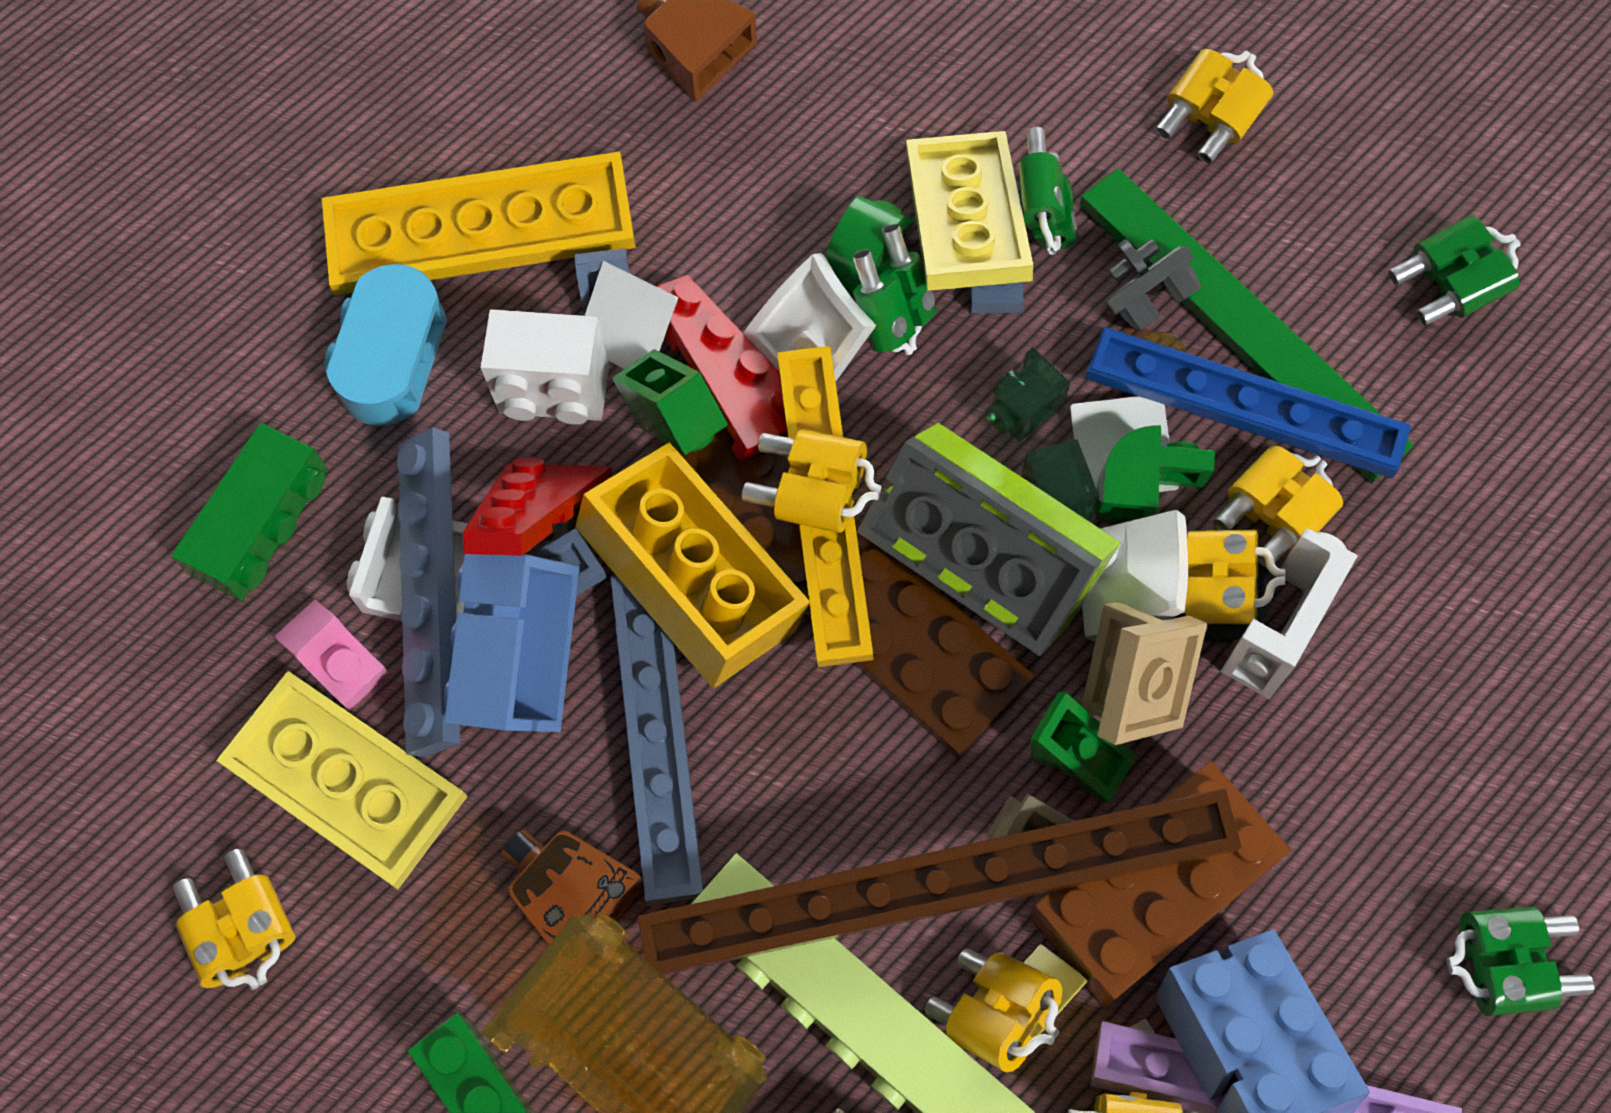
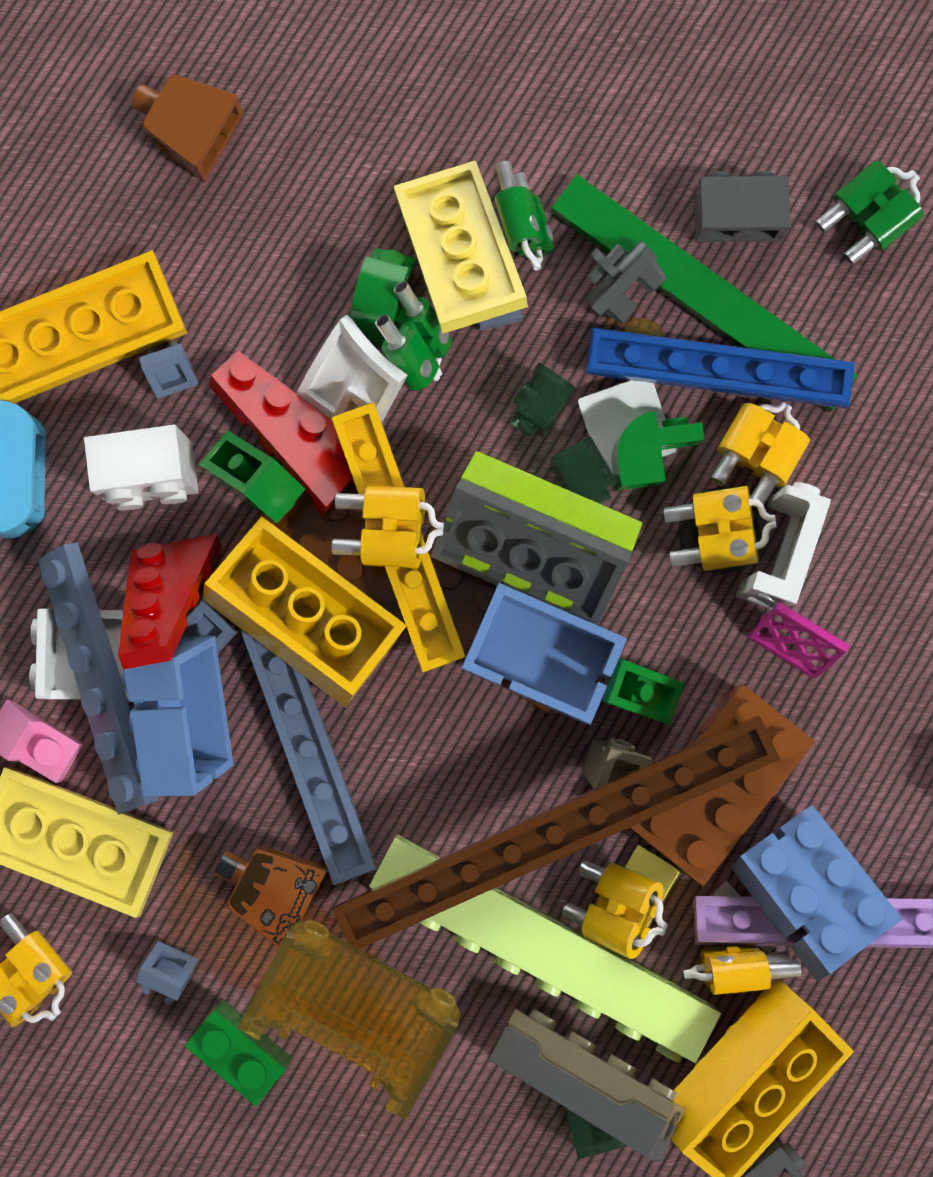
camera: 15 degrees left, 15 degrees up
(410, 962) = (166, 971): none -> sand blue tile
(629, 314) = (197, 403): white sticker -> none
(968, 667) = (544, 654): none -> medium blue piece
(1141, 672) = (676, 624): tan bracket -> none
(1145, 570) = (667, 542): white plate -> none
(1218, 97) = (649, 89): yellow piece -> none
(1303, 238) = (742, 207): none -> dark grey brick
(1312, 714) = (801, 624): none -> dark pink window

